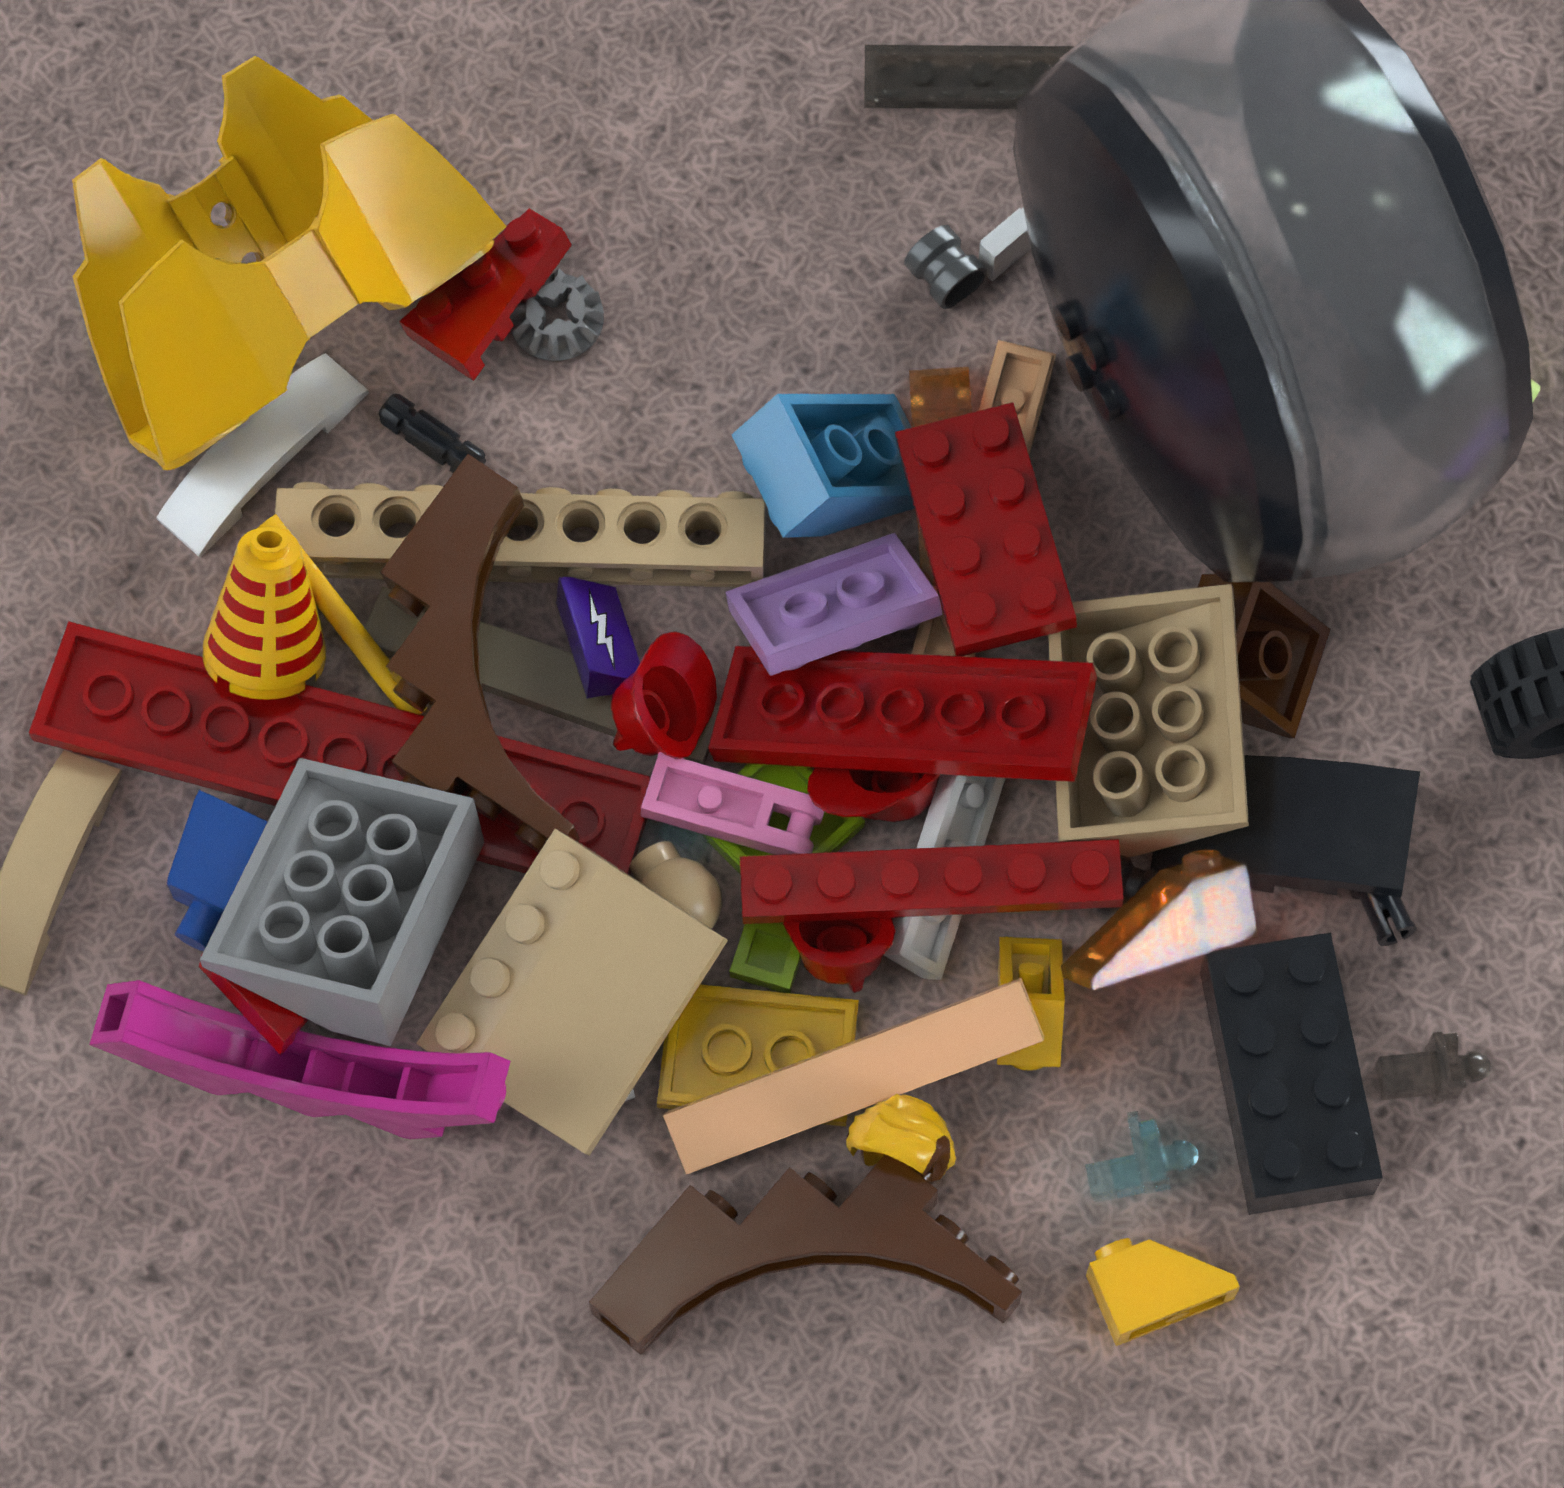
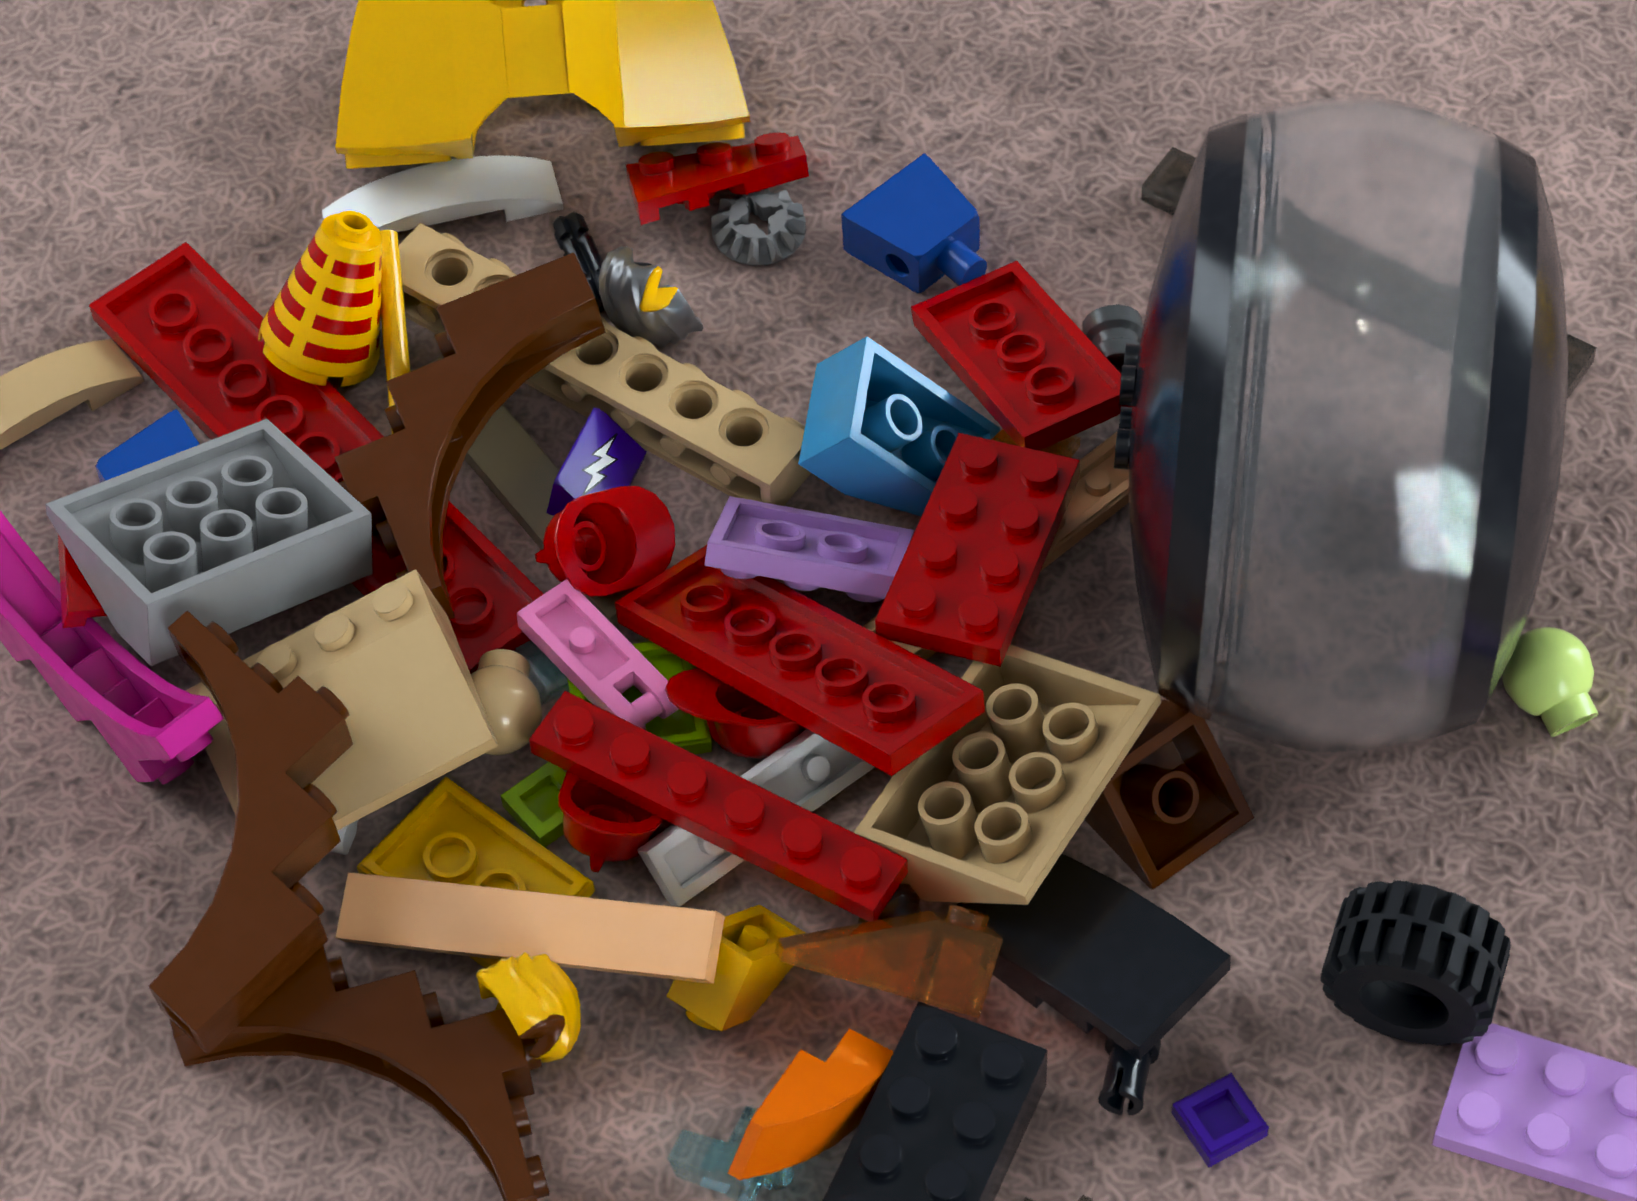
camera: 35 degrees right, 15 degrees down
(523, 453) = (639, 305): none -> flat silver hair
(558, 1053) = (261, 915): none -> reddish brown arch
(704, 246) = (916, 229): none -> blue torso
(883, 323) = (1021, 356): none -> red plate
(1184, 1085) = (811, 1107): none -> orange slope
(1473, 901) = (1220, 1120): none -> dark purple tile

